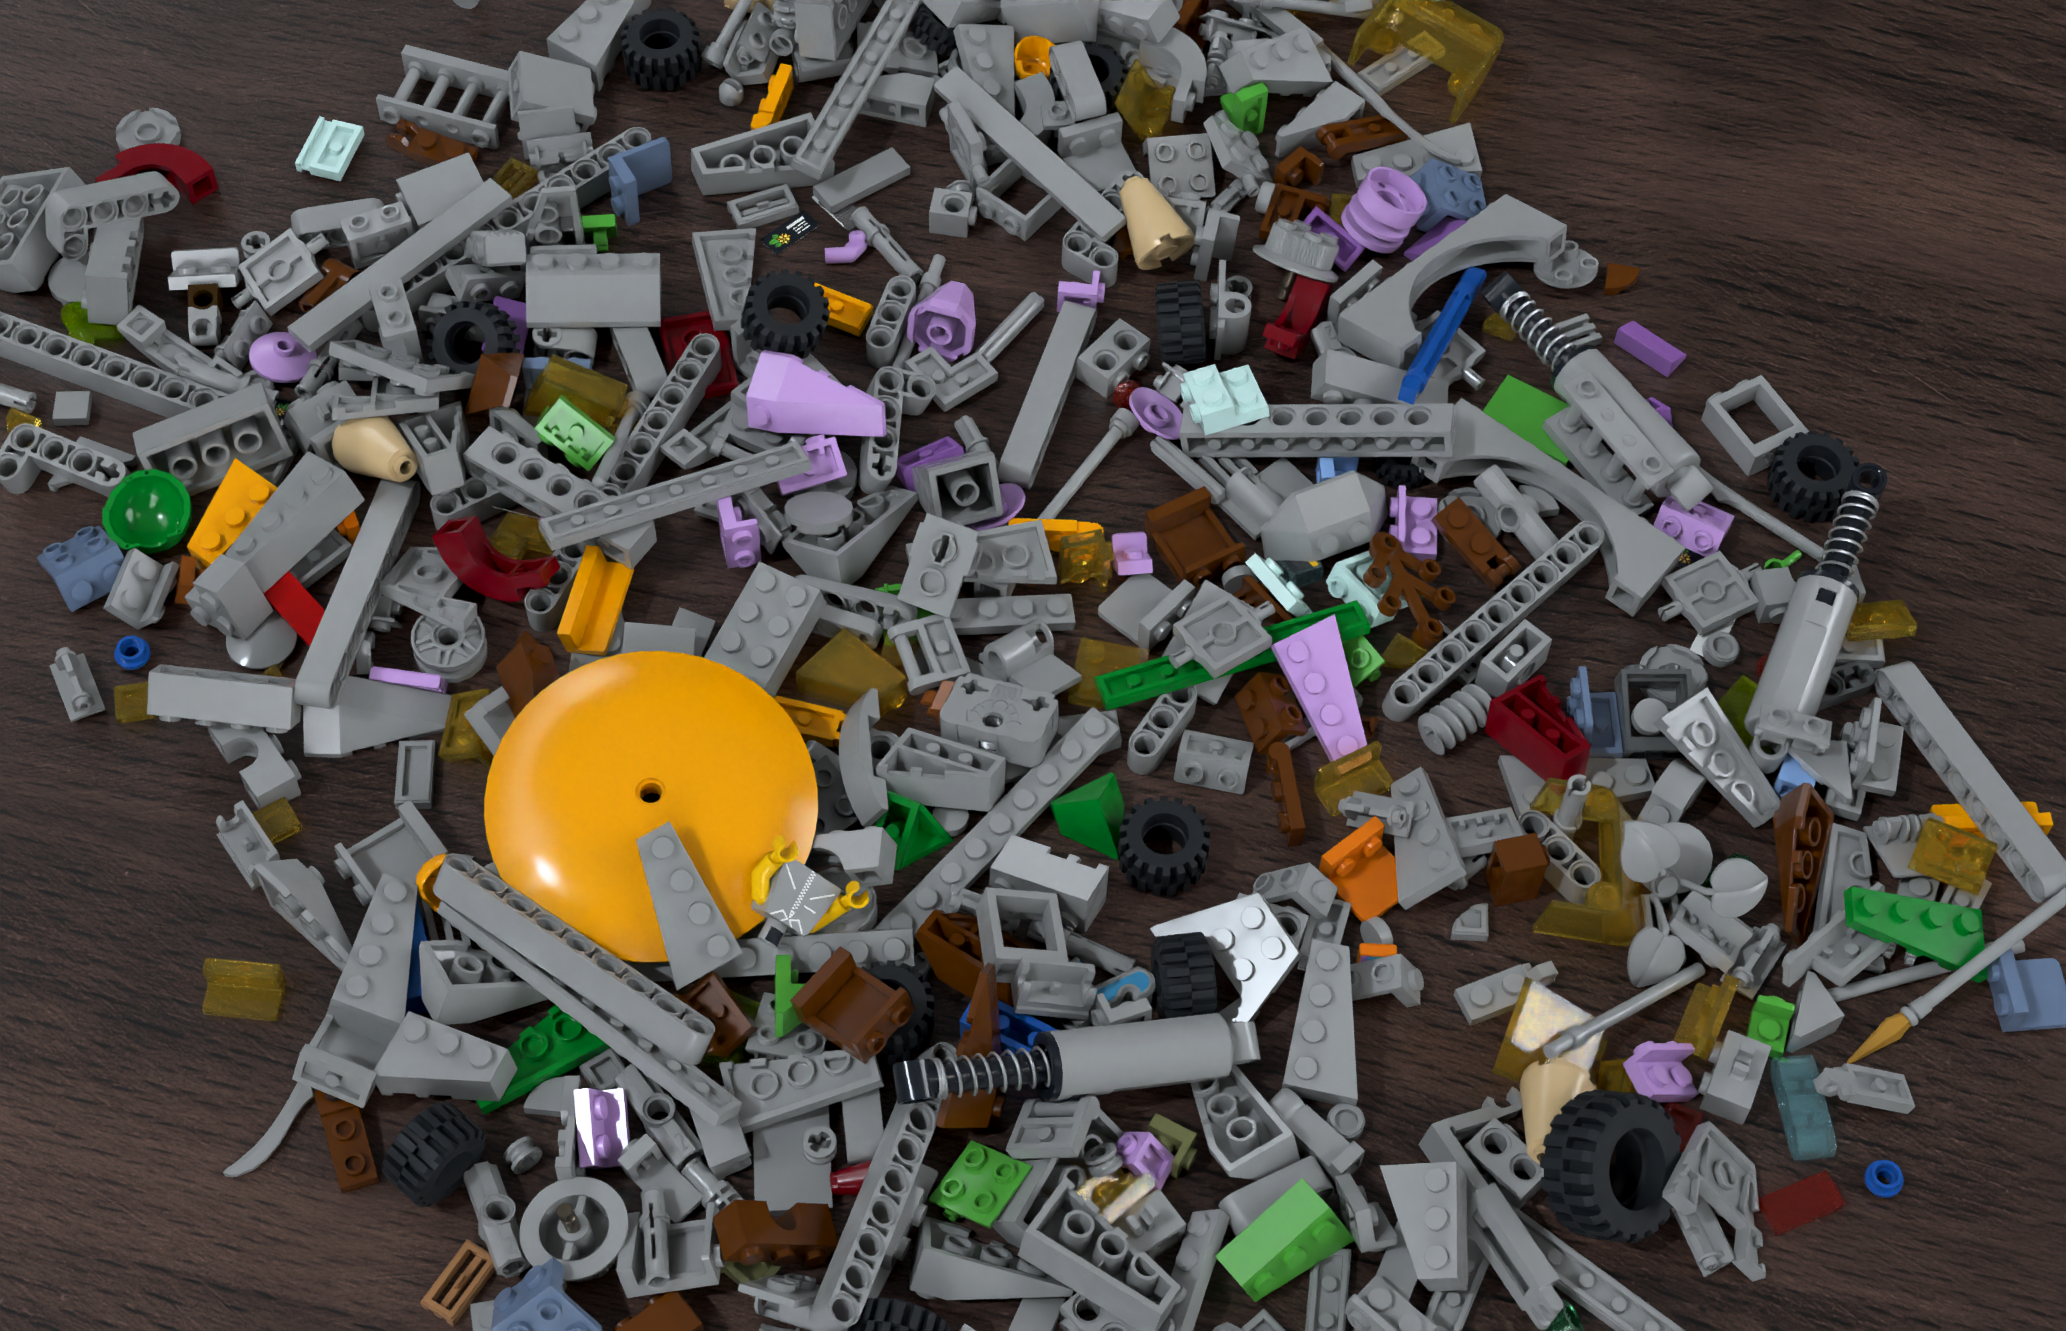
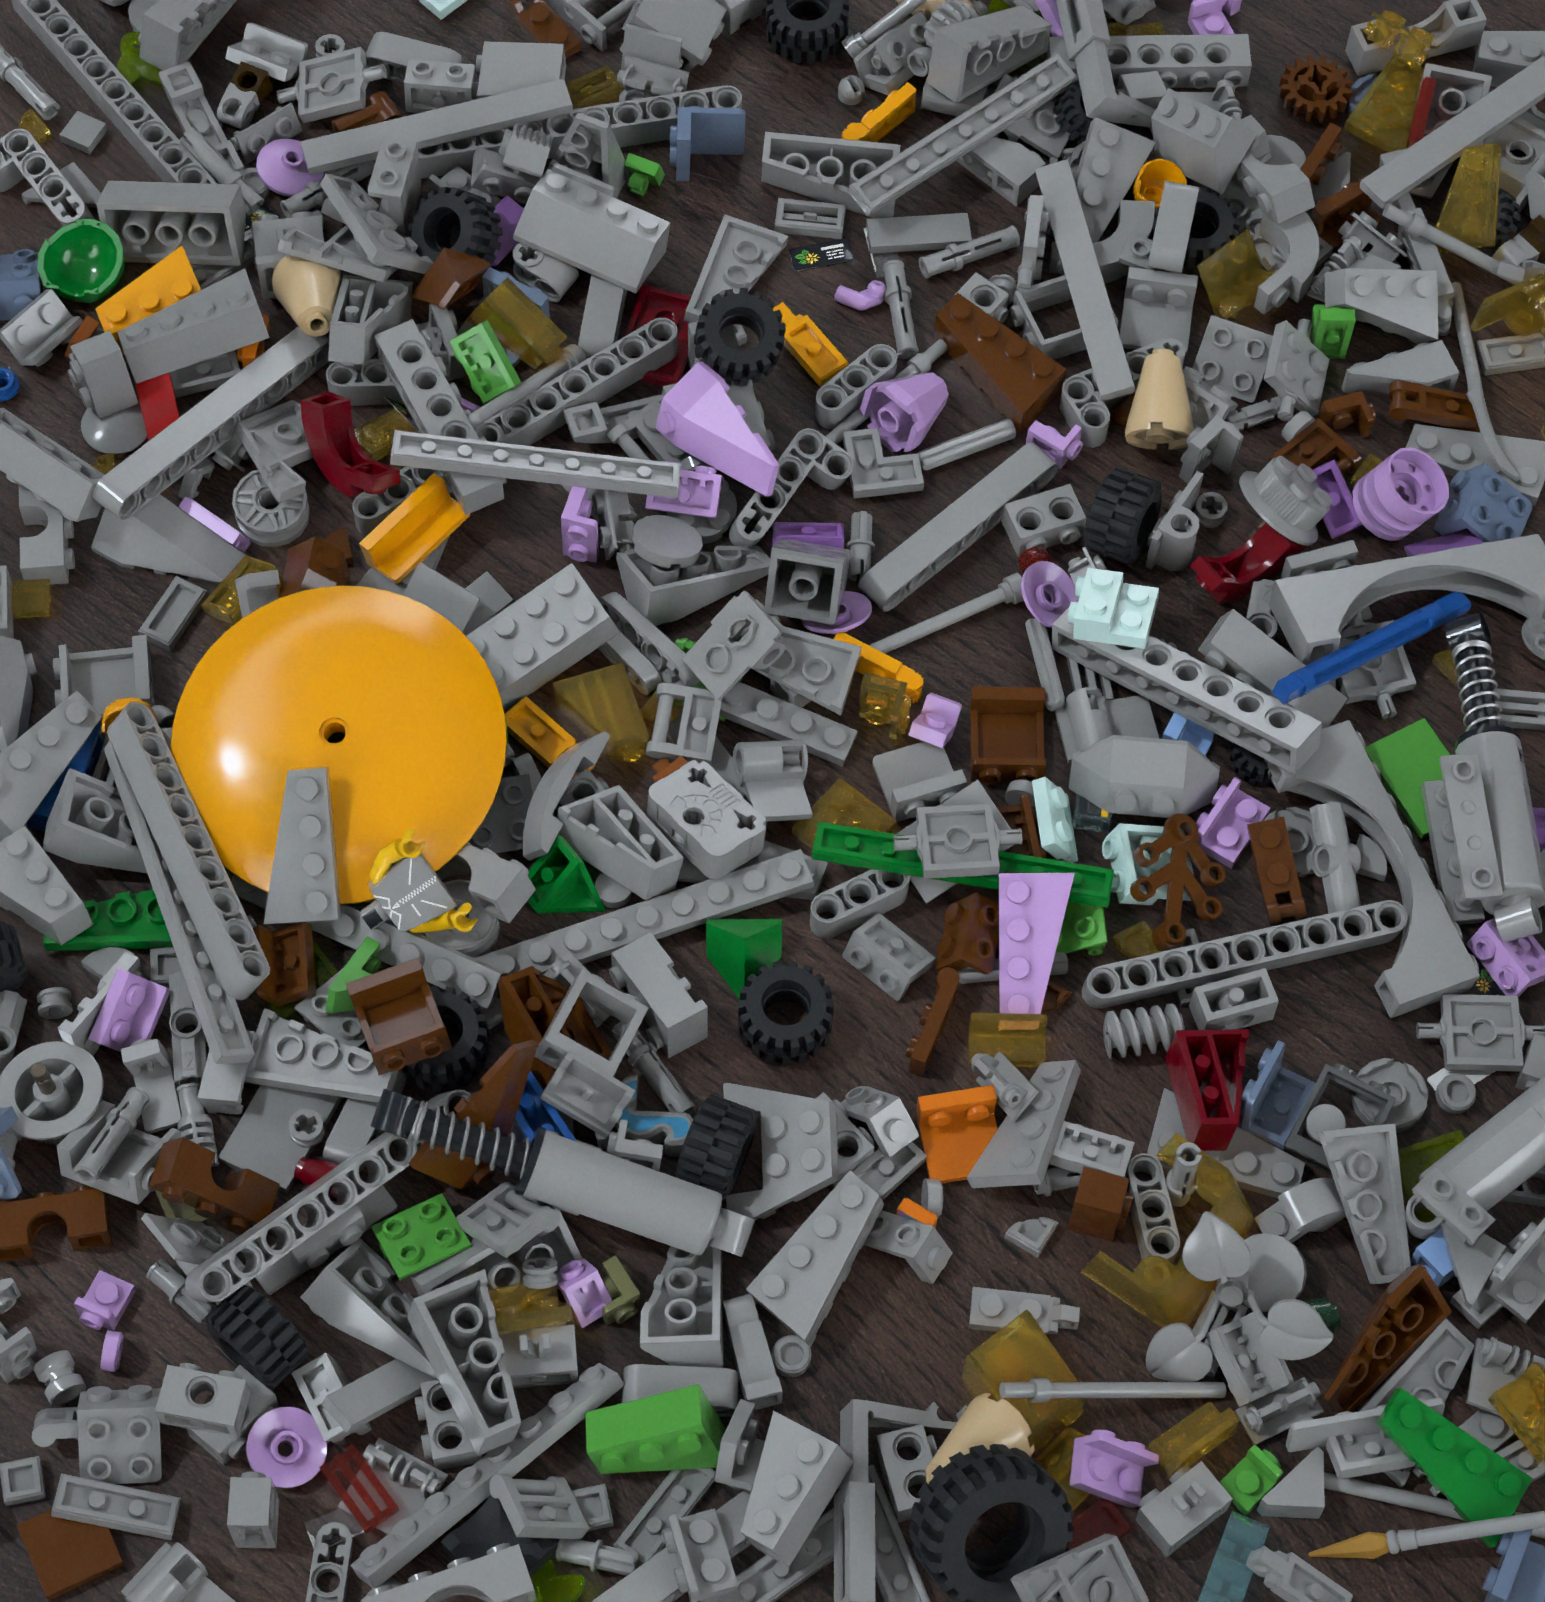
camera: 30 degrees right, 5 degrees up
(892, 198) = (934, 263): none -> light grey pin
(995, 249) = (1000, 362): none -> reddish brown wedge

